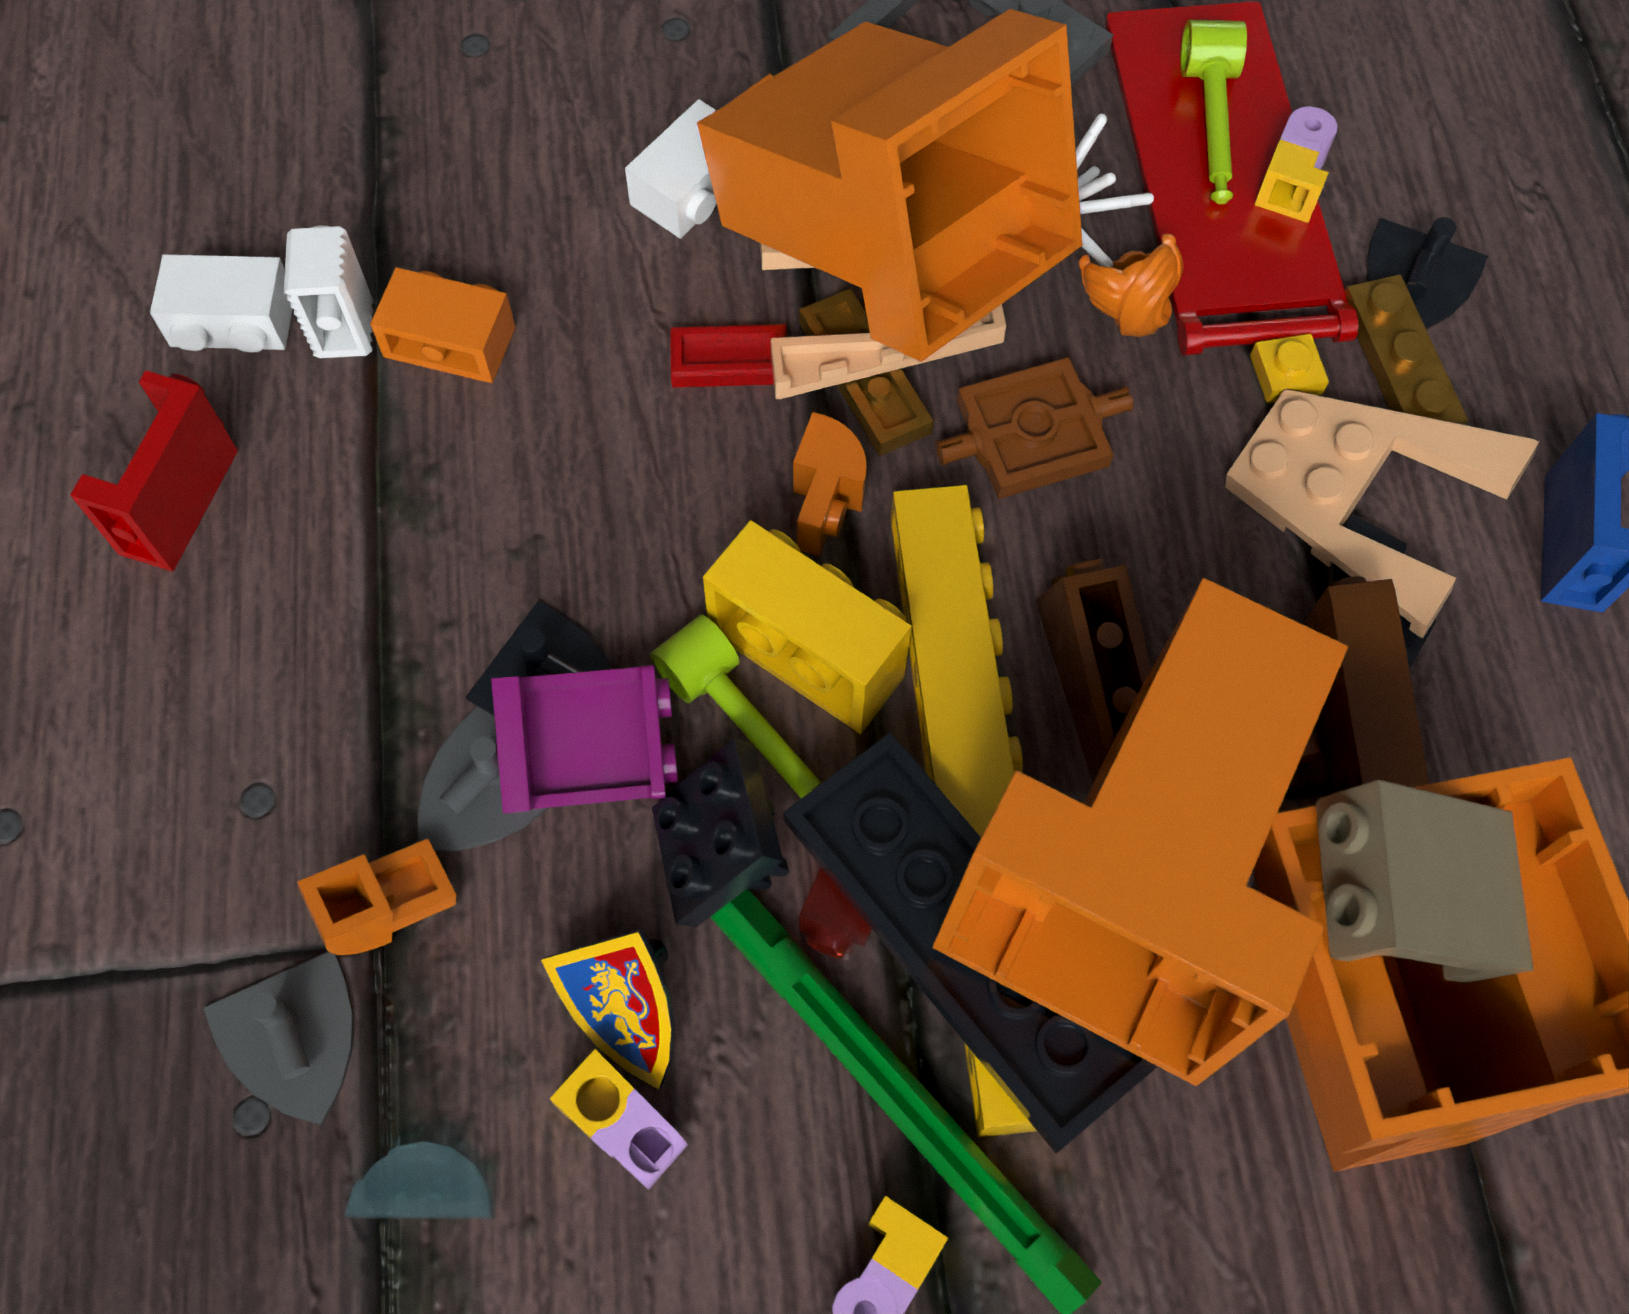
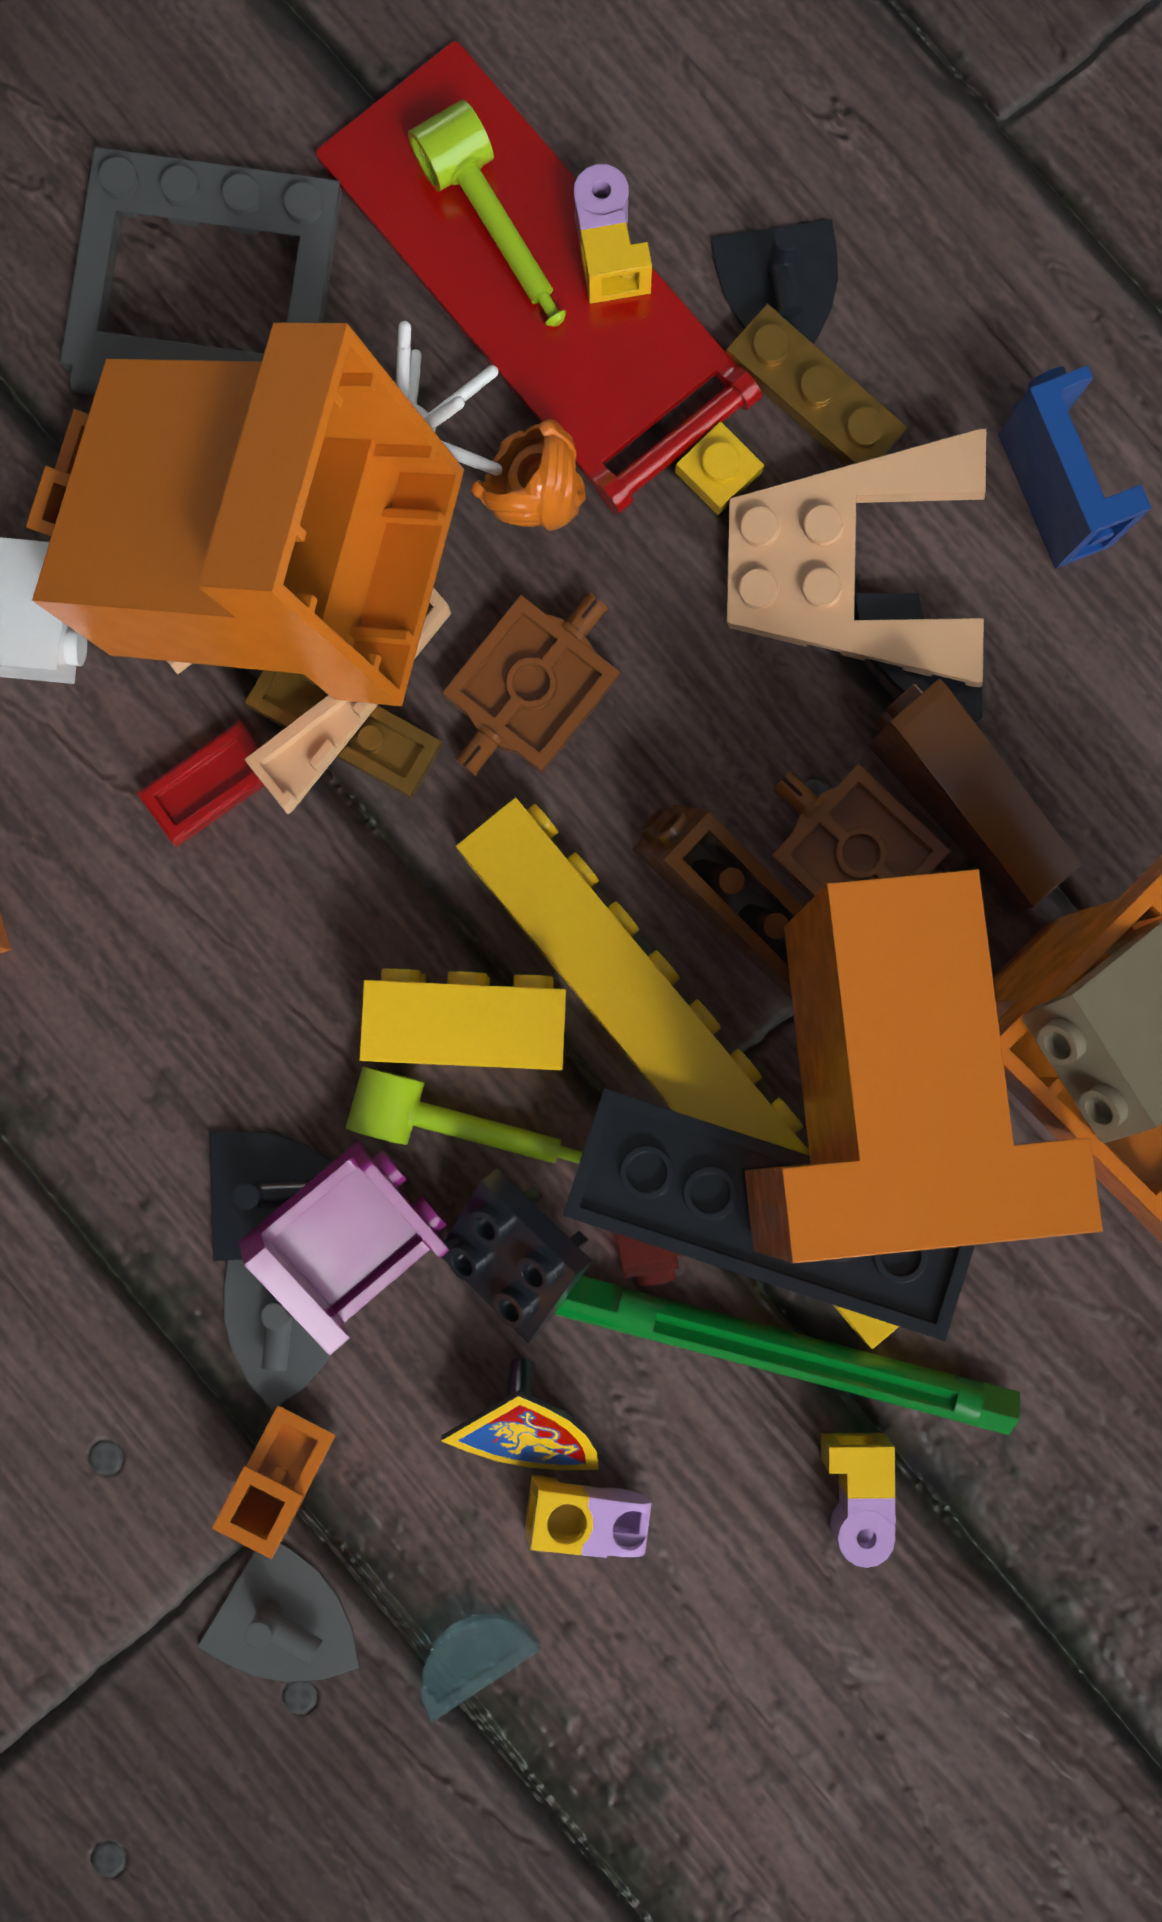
camera: 40 degrees left, 20 degrees up
(831, 476) = (383, 847): orange brick -> none

